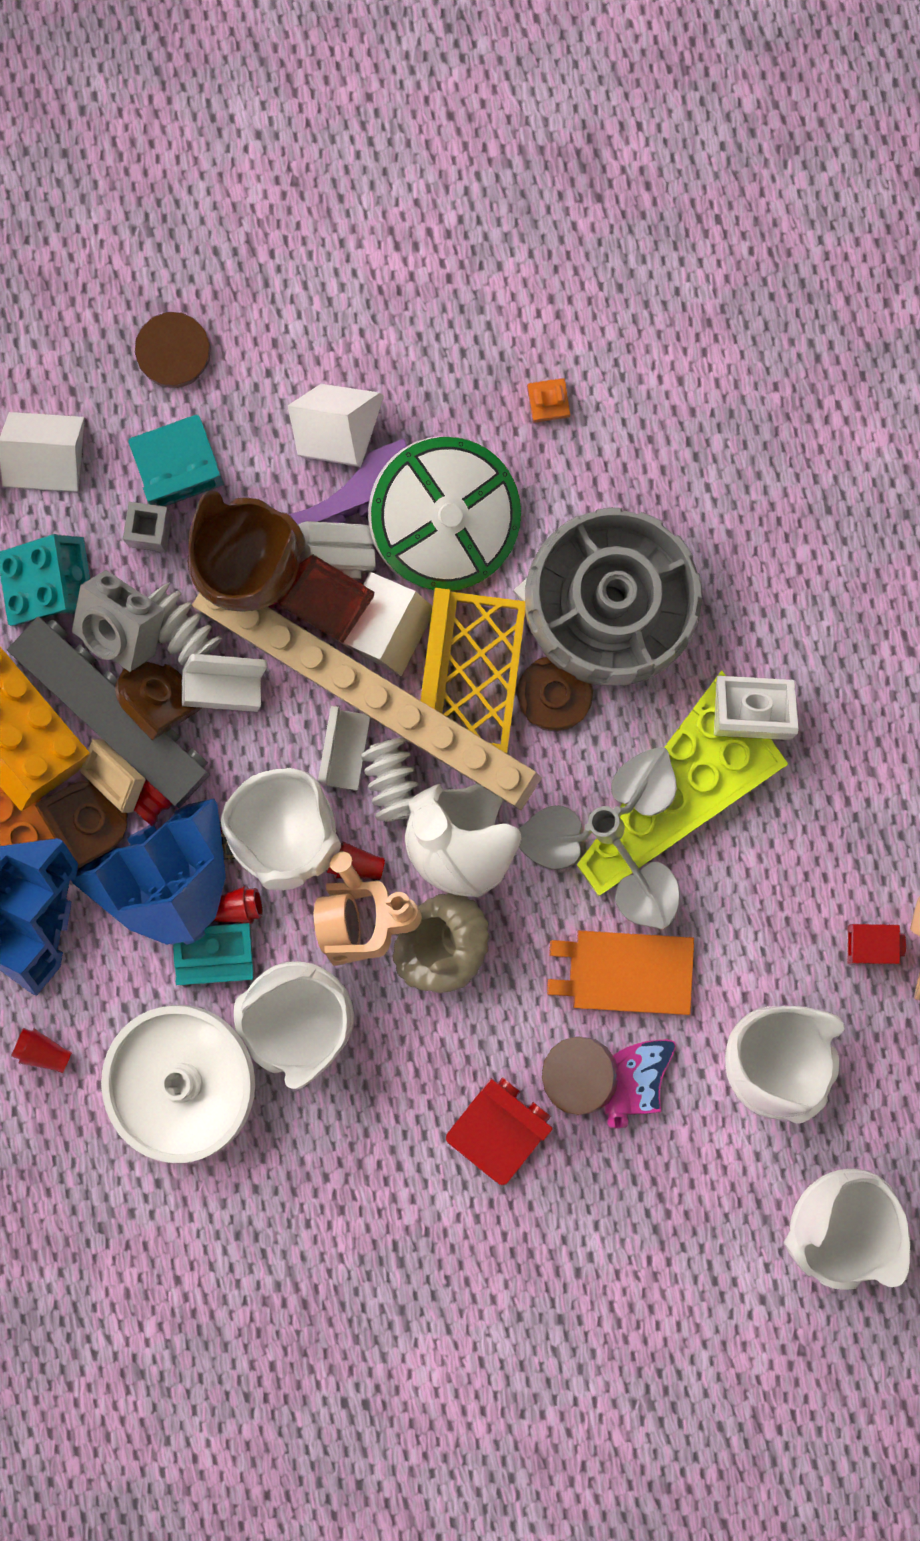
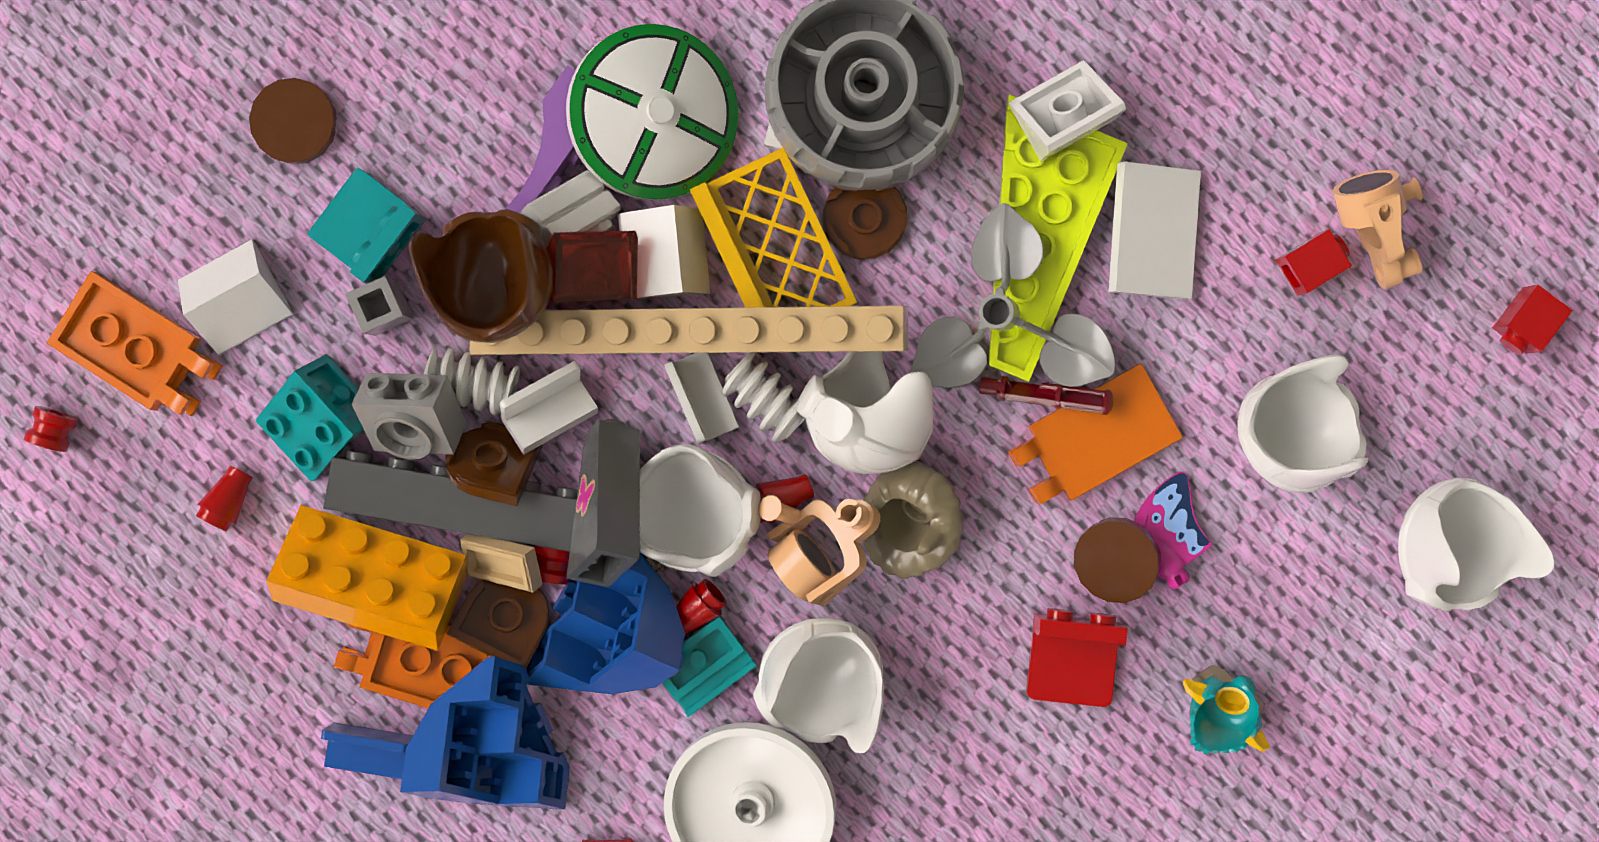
camera: 35 degrees left, 5 degrees up
(220, 782) = (607, 505): none -> dark grey slope
(334, 423) = (492, 92): white slope -> none
(587, 1245) = (1224, 712): none -> teal hair
(607, 915) = (1048, 394): none -> dark red piece
(767, 843) = (1154, 230): none -> white tile

